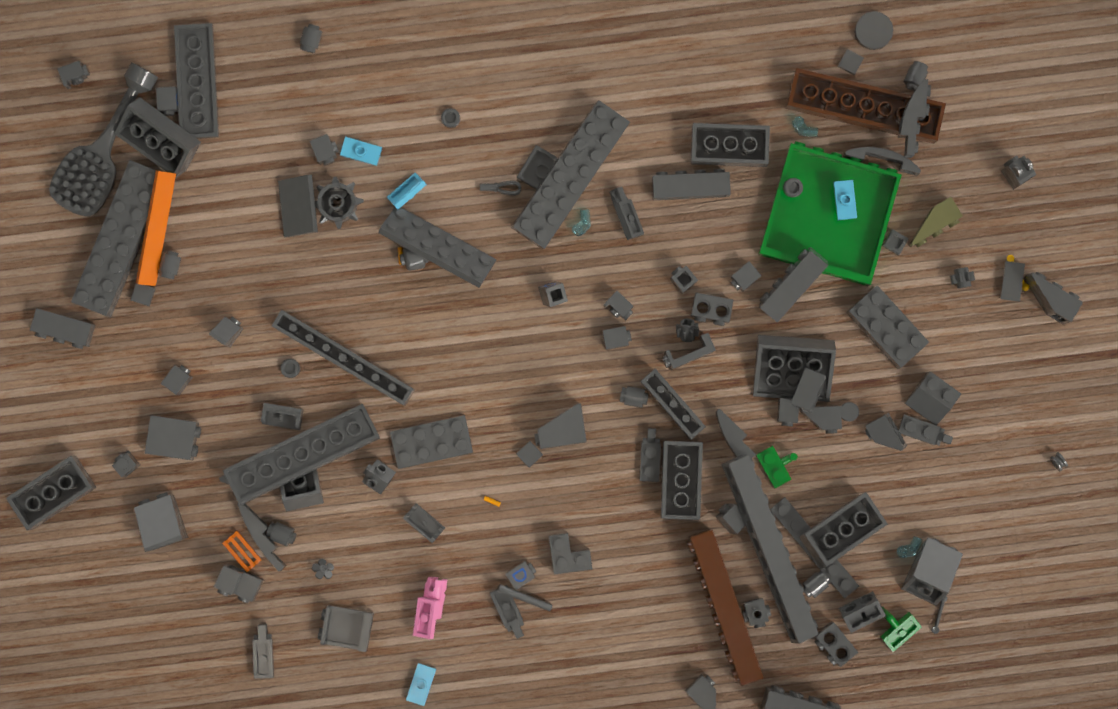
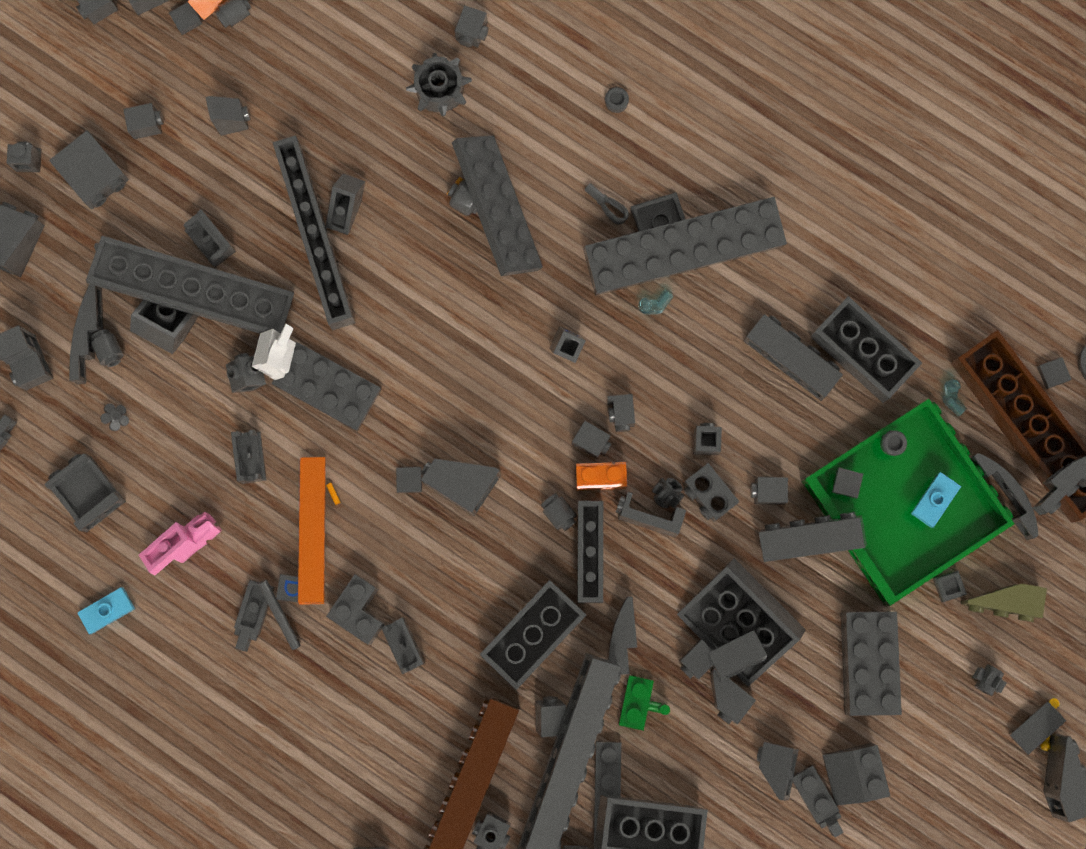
camera: 40 degrees right, 5 degrees down
(236, 556) = (56, 333): orange tile -> none
(290, 368) = (257, 202): dark grey tile -> none
(298, 206) = (399, 57): dark grey tile -> none
(345, 324) = (344, 203): none -> dark grey slope
(361, 151) = (505, 59): medium azure plate -> none
(385, 449) = (274, 352): none -> white piece
(406, 190) = (514, 130): medium azure plate -> none
(500, 532) = (312, 531): none -> orange tile
(611, 552) = (403, 645): none -> dark grey hinge
(626, 214) = (706, 331): dark grey hinge -> none
(640, 354) = (601, 476): none -> orange brick
(650, 457) = (522, 586): dark grey hinge -> none
(786, 234) = (847, 483): none -> dark grey tile
(849, 411) = (759, 714): dark grey tile -> none

